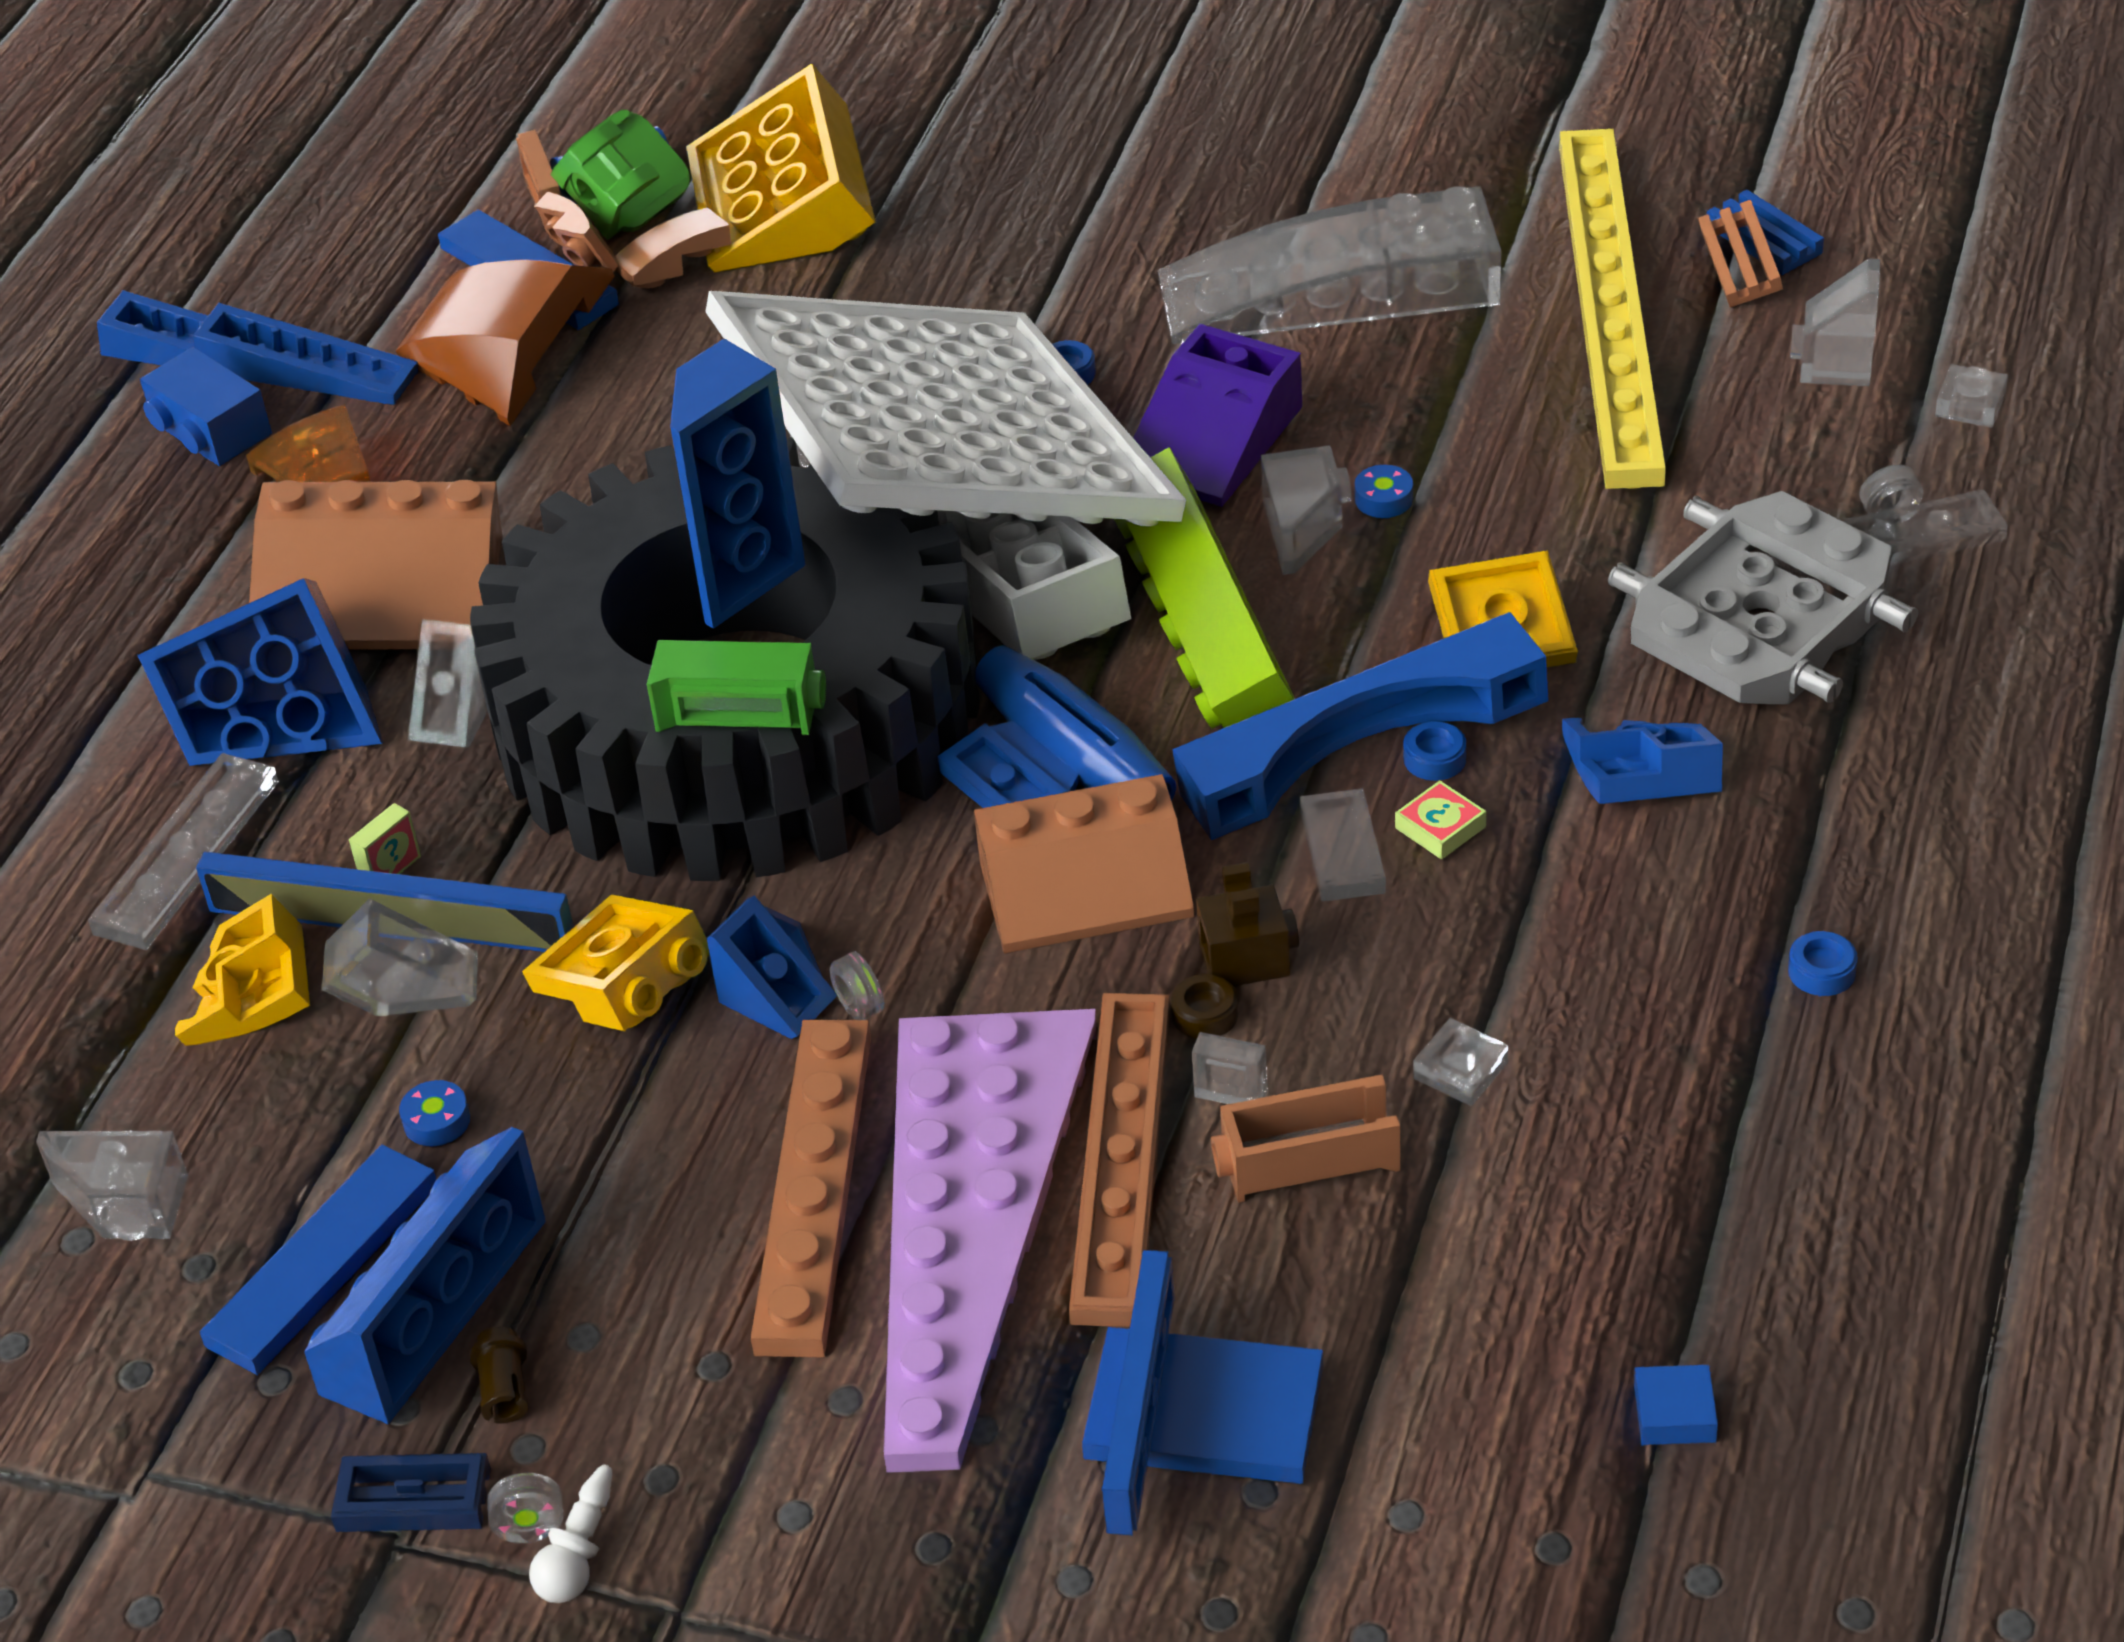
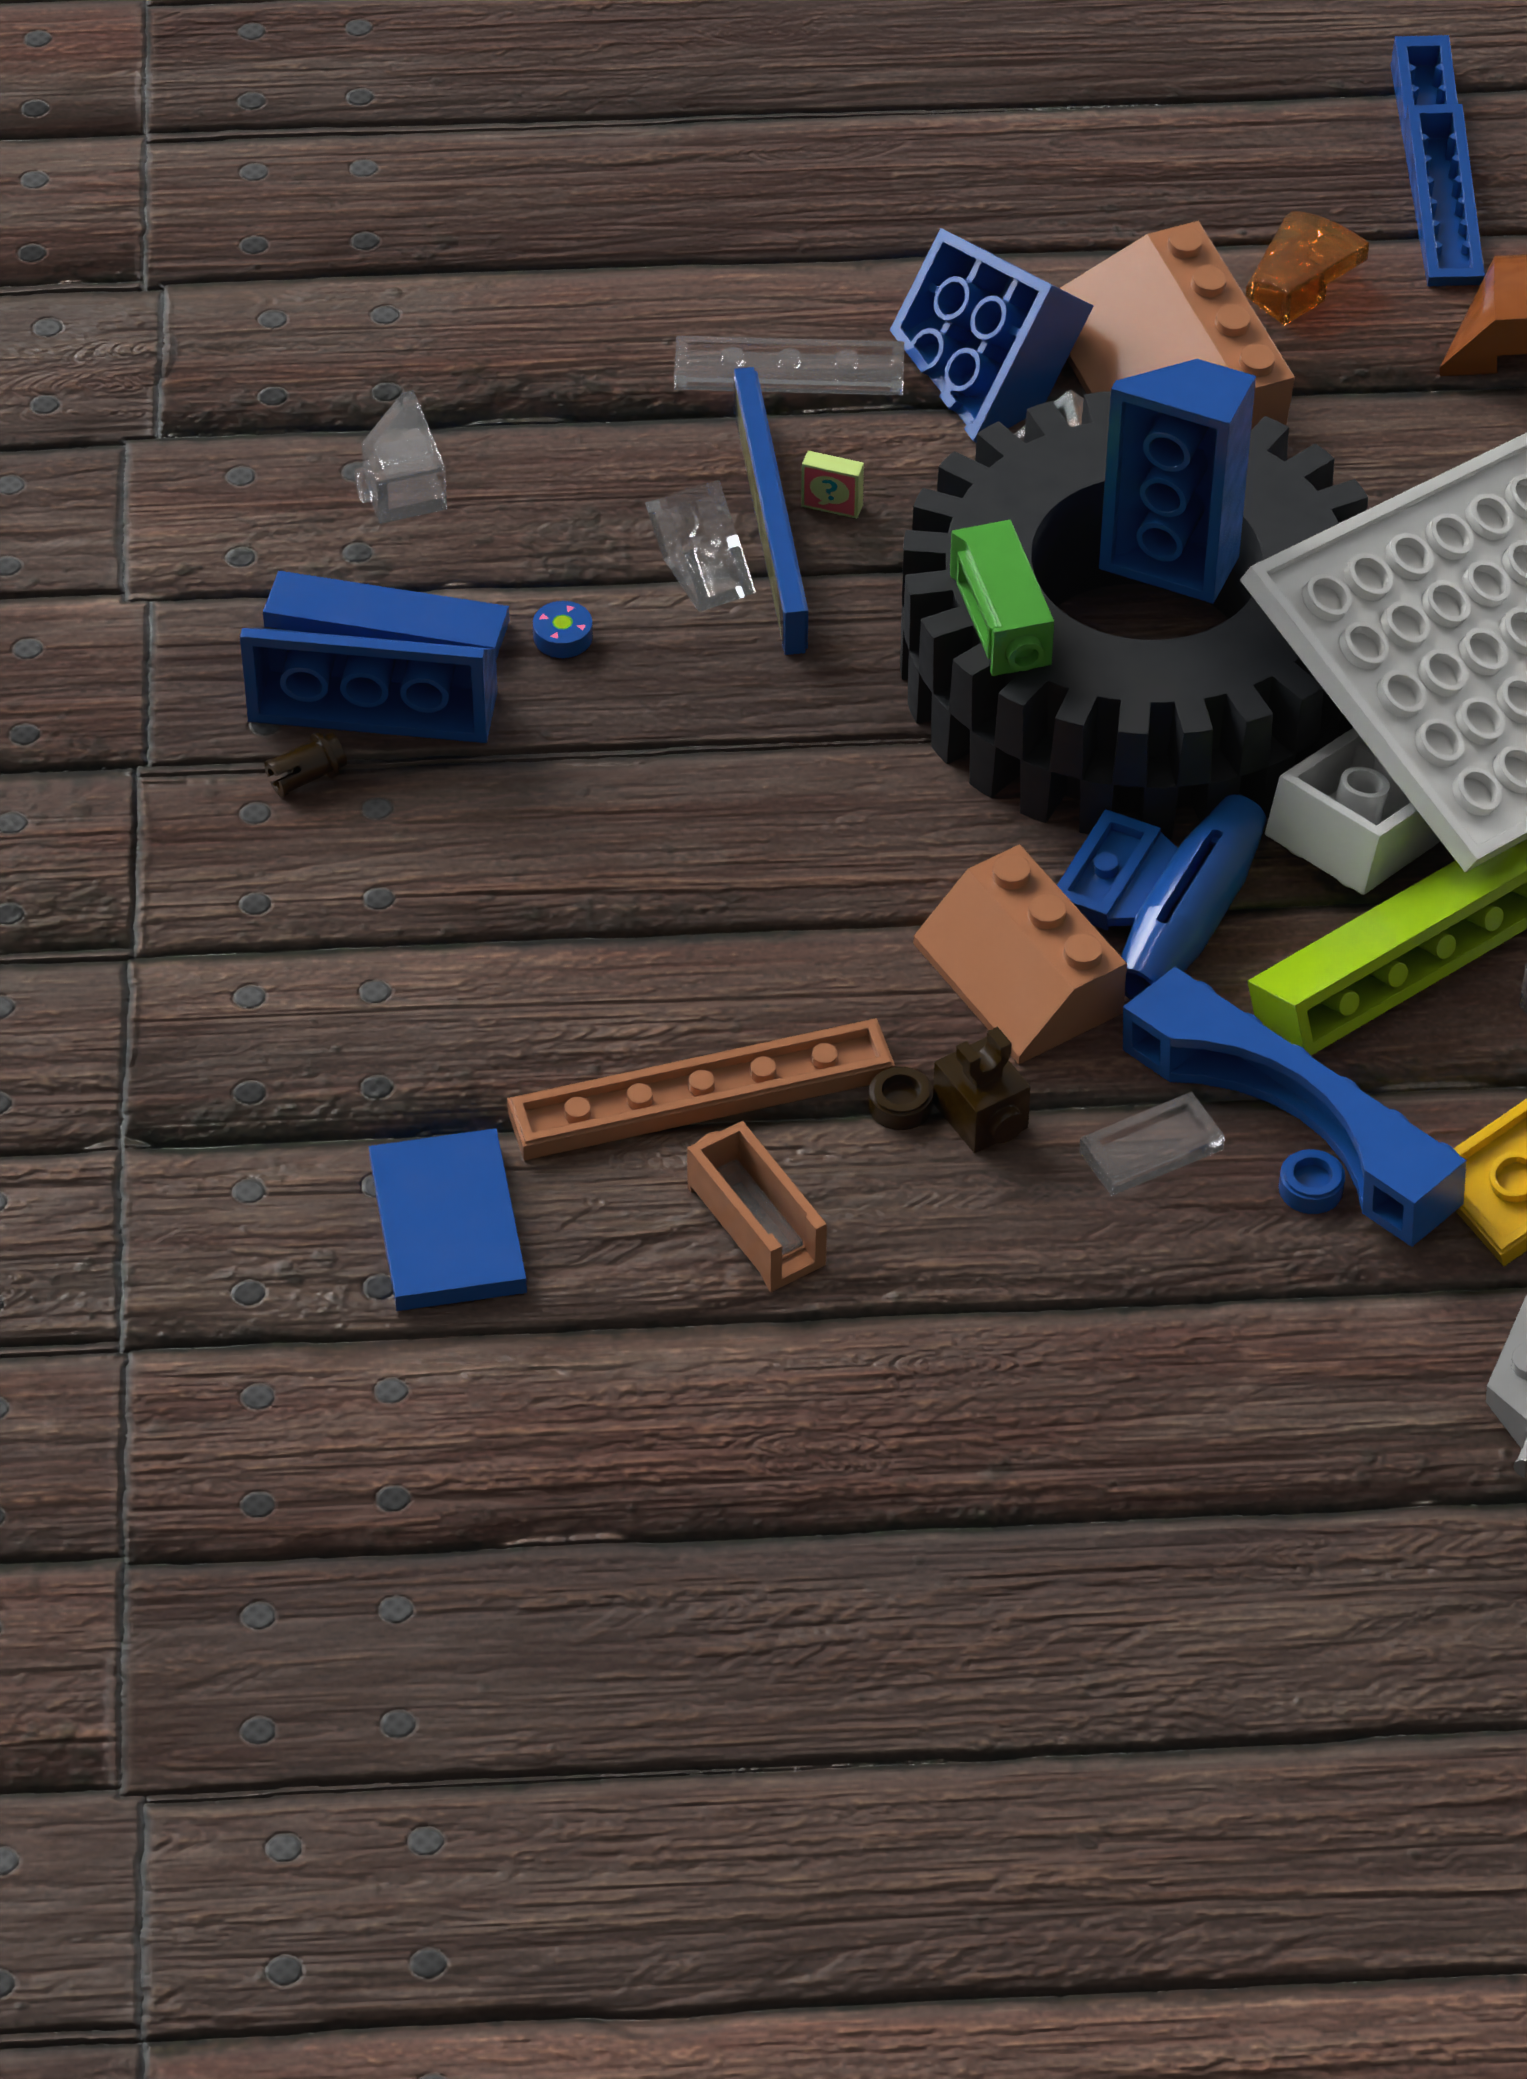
camera: 65 degrees right, 5 degrees up
(205, 406) = (1330, 155): blue brick -> none
(251, 975) = (664, 458): yellow slope -> none
(410, 1502) = (192, 787): dark blue tile -> none
(524, 1507) = (178, 821): clear tile -> none
(562, 1568) = (144, 868): white bar -> none
(621, 961) = (765, 681): yellow plate -> none
(767, 969) = (809, 780): blue slope -> none
(811, 1190) = (585, 894): nougat plate -> none
(856, 986) = (806, 846): clear tile -> none
(970, 1178) = (636, 994): lavender wing -> none
(1138, 1394) = (412, 1153): blue tile -> none
(1228, 1069) = (812, 1128): clear tile -> none
(1440, 819) = (1215, 1207): yellowish green tile -> none
(1460, 1061) = (898, 1293): clear plate -> none
(1645, 760) = (1369, 1343): blue slope -> none
(1675, 1404) = (568, 1543): blue tile -> none
(1822, 963) = (1156, 1546): blue tile -> none

